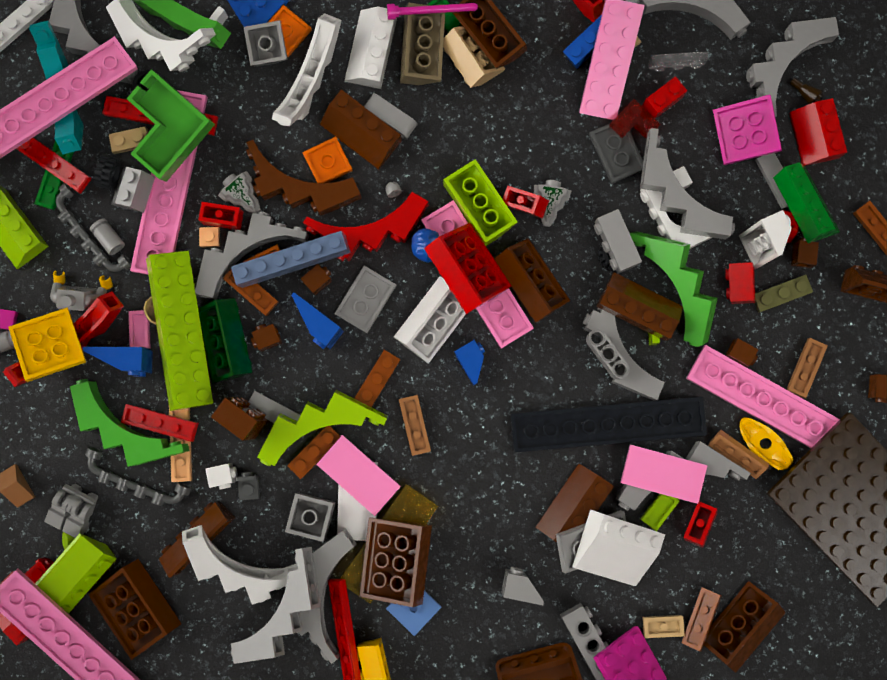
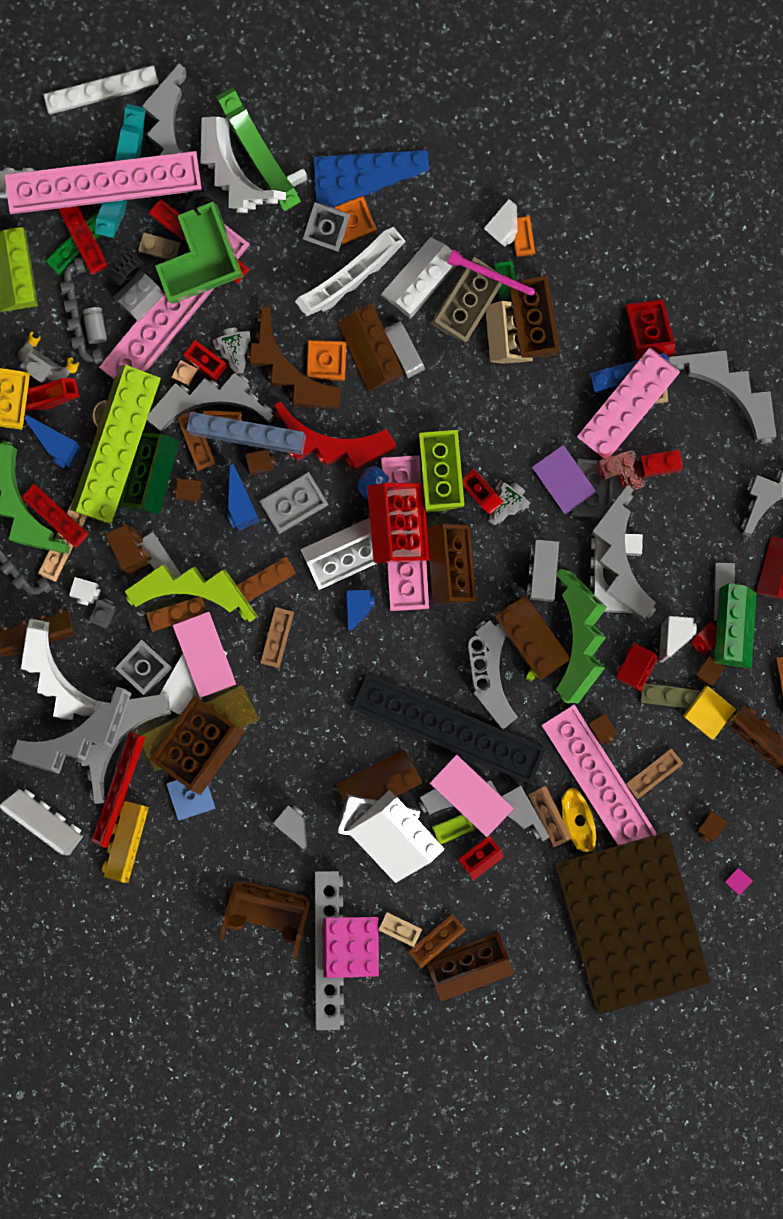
camera: 30 degrees right, 0 degrees up
(139, 330) = (79, 423): bright pink tile -> none
(393, 189) = (371, 417): light grey hinge -> none
(589, 155) = (564, 479): none -> medium lavender tile
(677, 60) = (693, 436): clear plate -> none
(747, 130) = (718, 532): dark pink plate -> none
(824, 289) = (709, 712): none -> yellow tile

